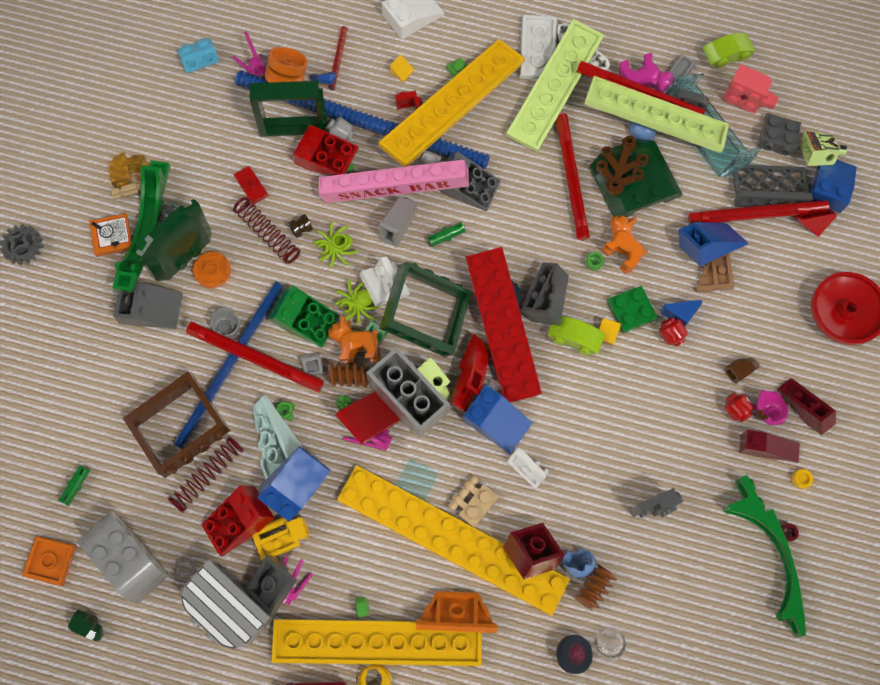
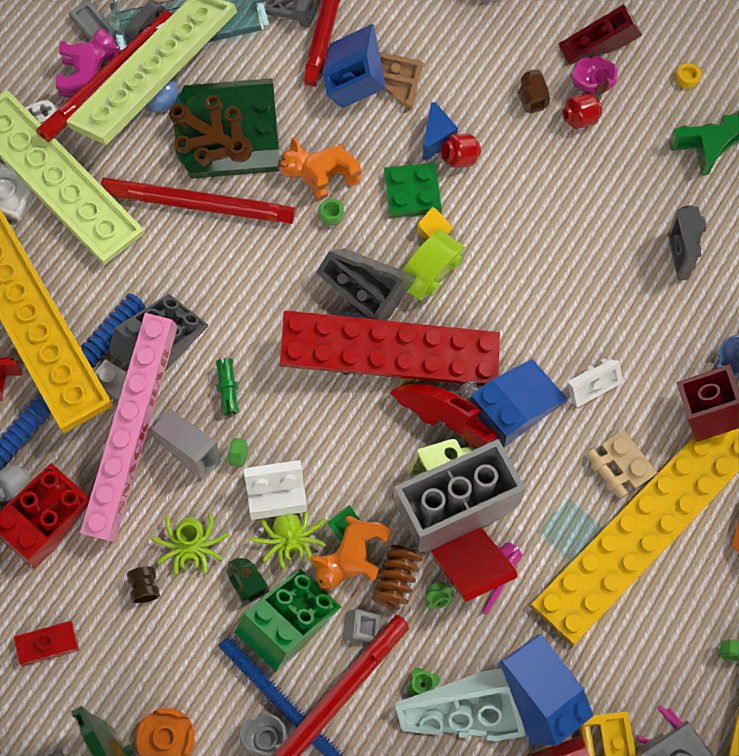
camera: 70 degrees left, 5 degrees down
(242, 208) = (75, 655): dark red piece -> none
(299, 529) = (607, 706): yellow slope -> none
(321, 285) = (246, 580): none -> dark green rock
(403, 254) = (238, 452): none -> bright green tile
(418, 338) = (357, 408): dark green window -> none
(768, 446) = (639, 98): dark red slope -> none

